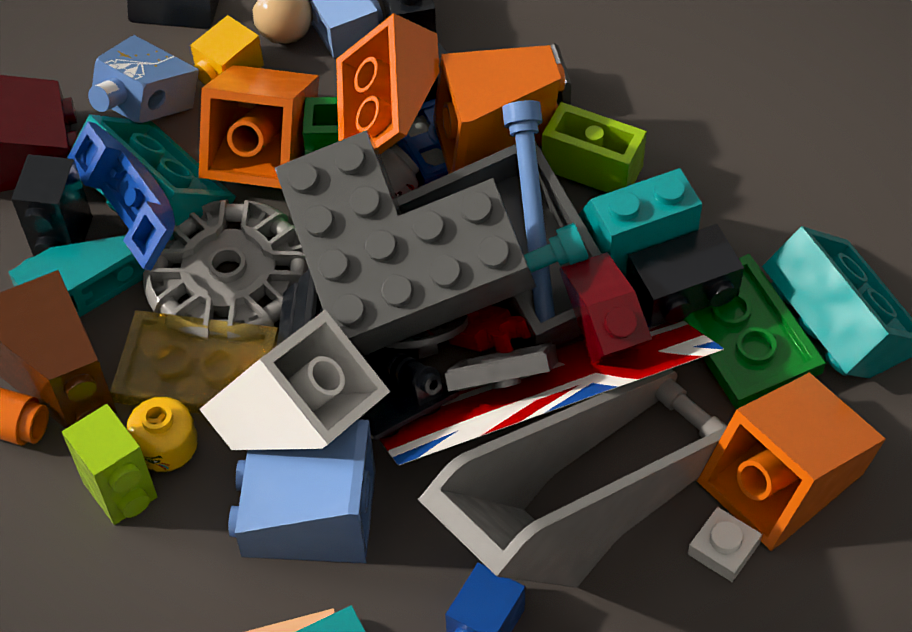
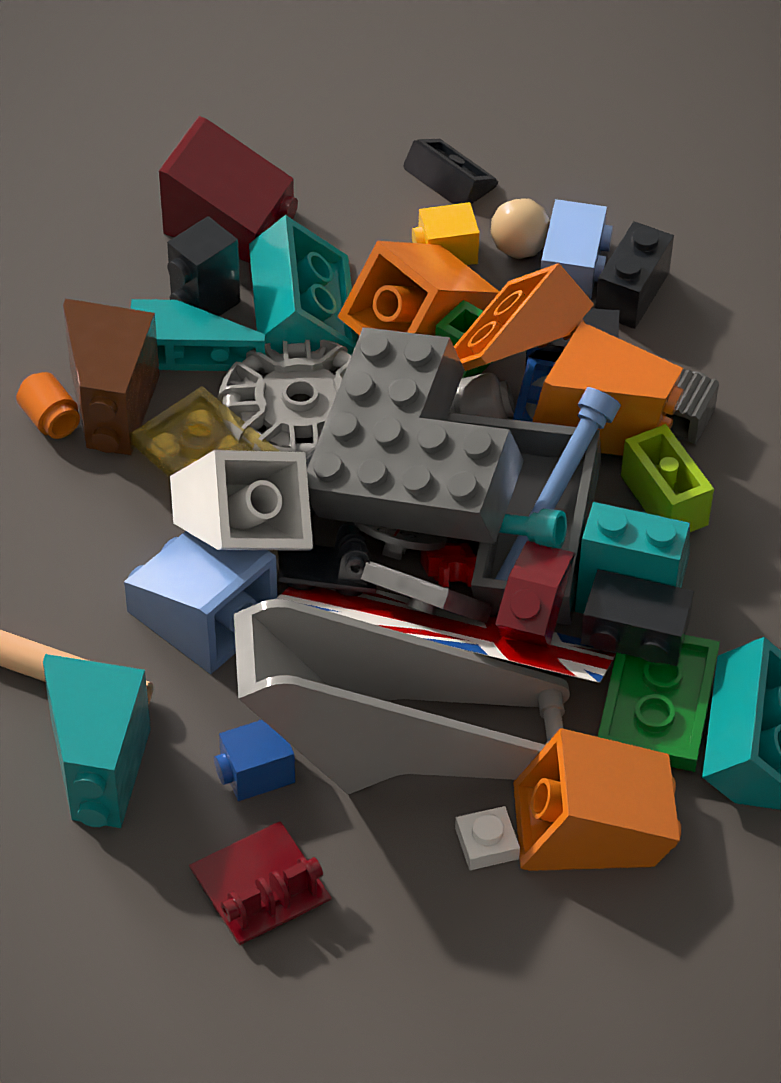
camera: 35 degrees right, 5 degrees down
(110, 464) = (81, 479): lime brick -> none
(129, 189) = (267, 263): blue slope -> none
(142, 81) = (355, 213): medium blue torso -> none
(164, 433) = (140, 484): yellow head -> none

